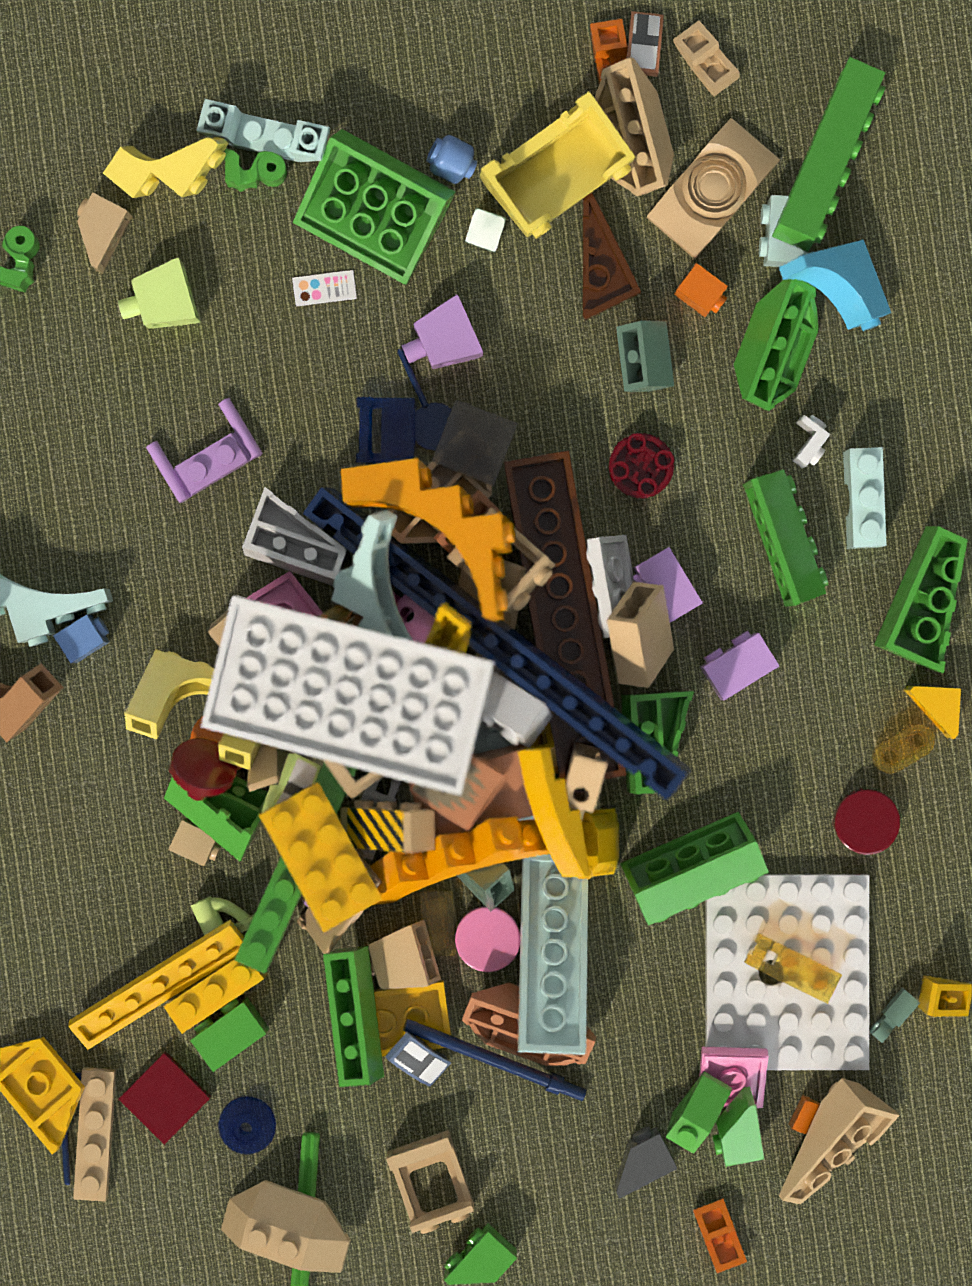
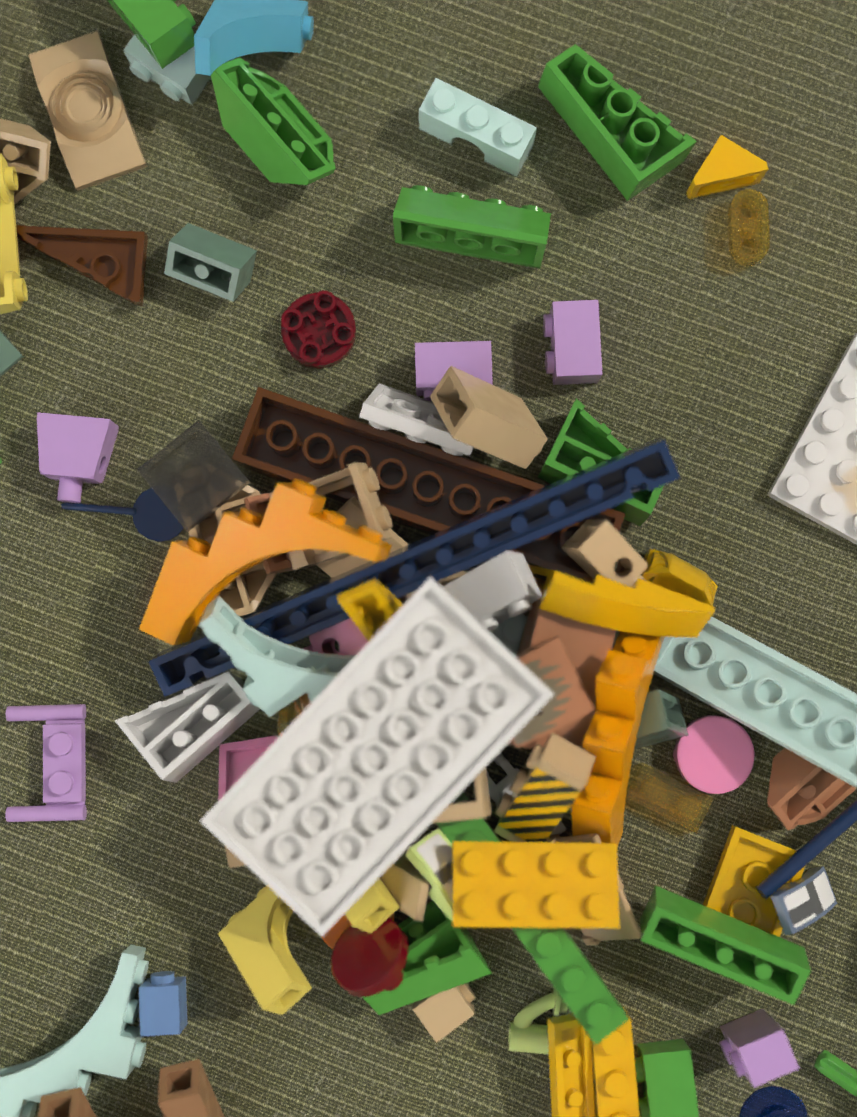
camera: 60 degrees left, 5 degrees down
(293, 1080) = (757, 1048): none -> lavender brick
(396, 429) = (136, 551): clear blue plate -> none
(404, 958) = (690, 854): tan torso -> none
(694, 868) = (758, 499): bright green slope -> none
(702, 291) = (179, 173): orange brick -> none
(812, 449) = (387, 138): white bracket -> none
(866, 821) = (802, 304): dark red tile -> none

